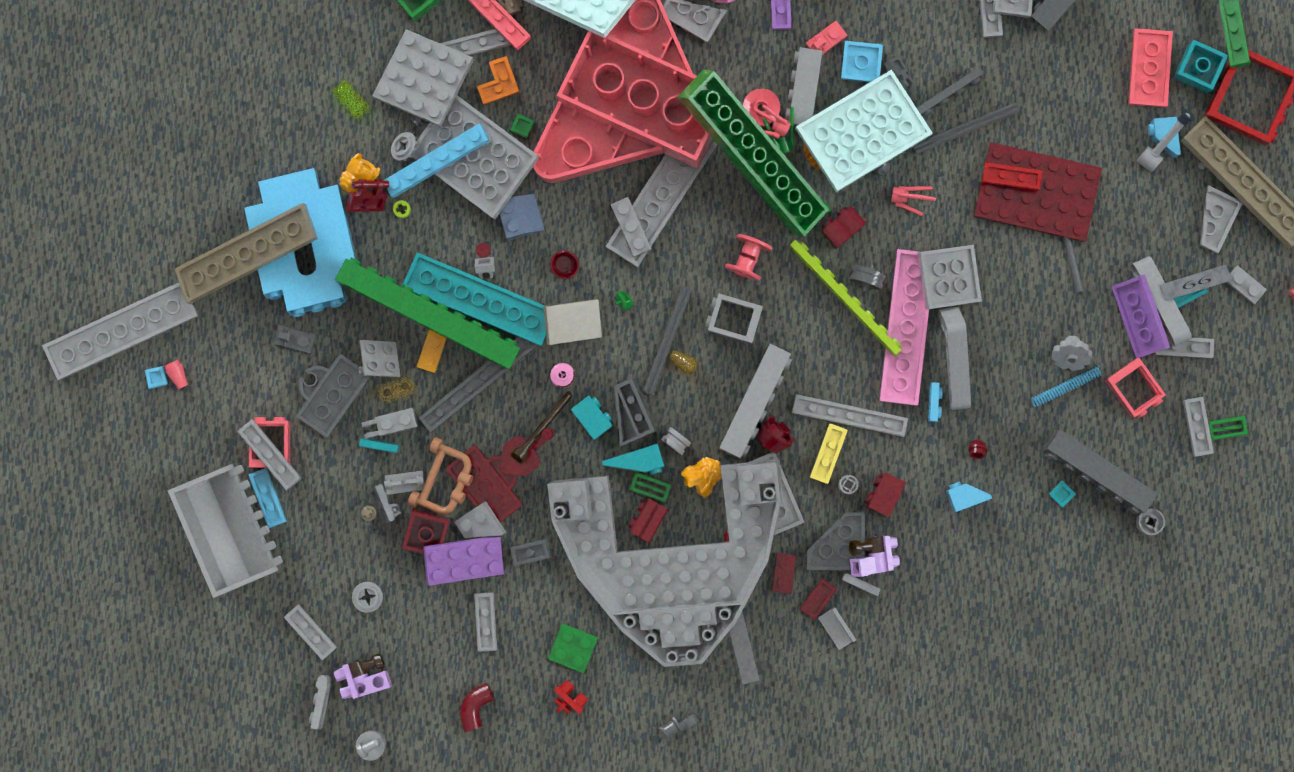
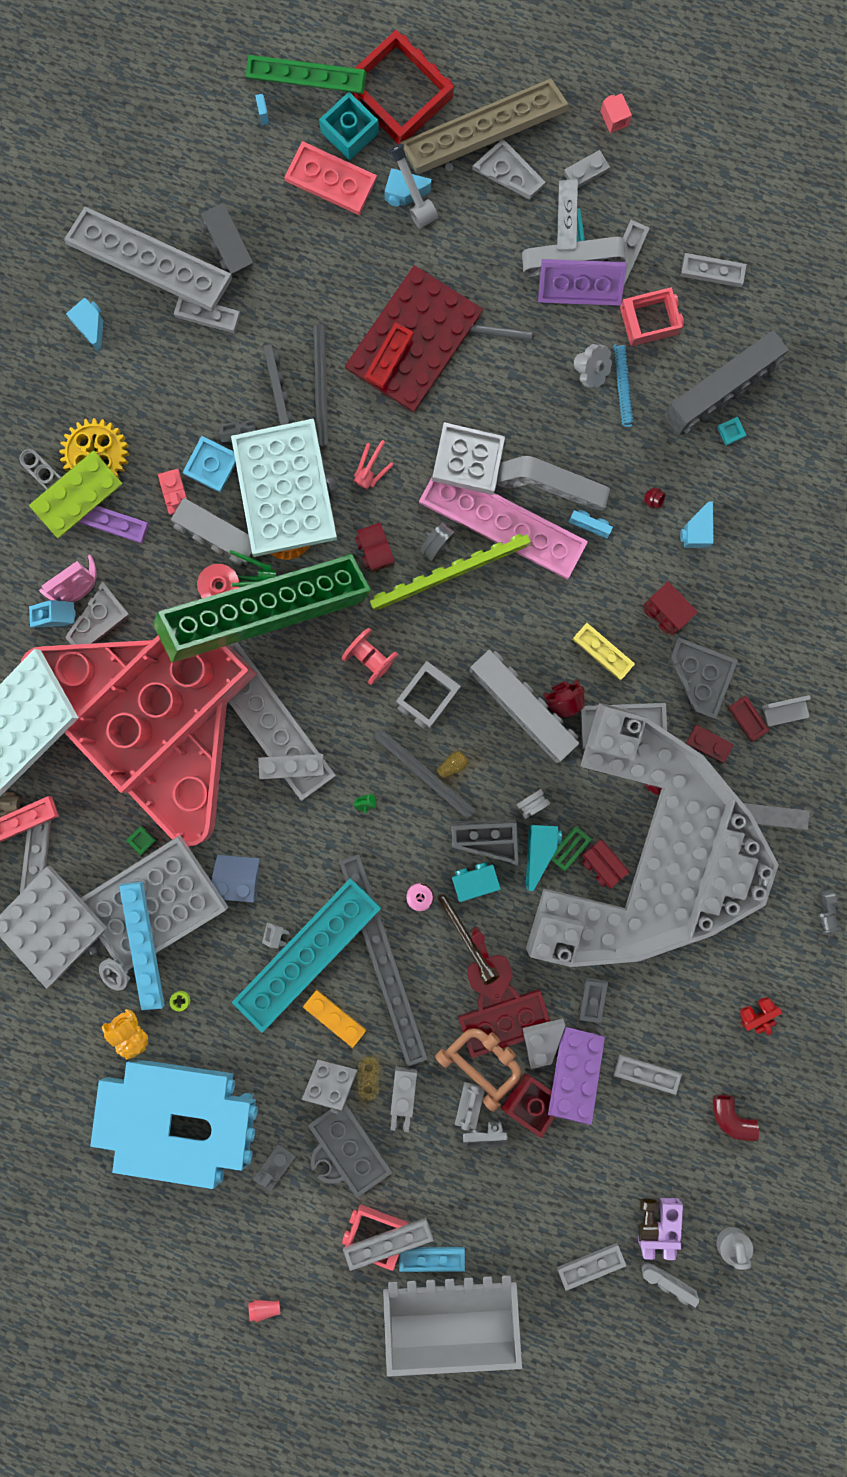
camera: 70 degrees left, 0 degrees up
(119, 331) = (193, 1355): light grey plate -> none
(156, 377) = (258, 1333): medium azure tile -> none
(246, 253) = (162, 1190): dark tan plate -> none
(351, 99) = (42, 1011): clear neon green plate -> none
(362, 605) = (583, 1198): light grey gear -> none
(367, 200) = (156, 1036): dark red plate -> none
(368, 513) = (489, 1158): dark tan axle -> none
(379, 445) = (420, 1118): teal tile -> none
(427, 314) = (299, 1022): green brick -> none
(483, 250) = (256, 930): dark red piece -> none
(502, 86) = (90, 844): orange plate -> none
(564, 264) = (304, 851): dark red hair -> none
(572, 321) = (367, 865): tile -> none
(573, 648) = (708, 992): green plate -> none
(703, 475) = (579, 789): light orange hair -> none
(780, 124) = (245, 571): coral plant -> none
(845, 484) = (639, 644): light grey wheel -> none
(849, 415) = (571, 615): light grey tile -> none
(861, 584) = (750, 669): light grey tile -> none
(879, 558) = (731, 639): lavender hips -> none
(1158, 524) = (801, 352): light grey wheel -> none
(1243, 425) = (727, 225): green tile -> none

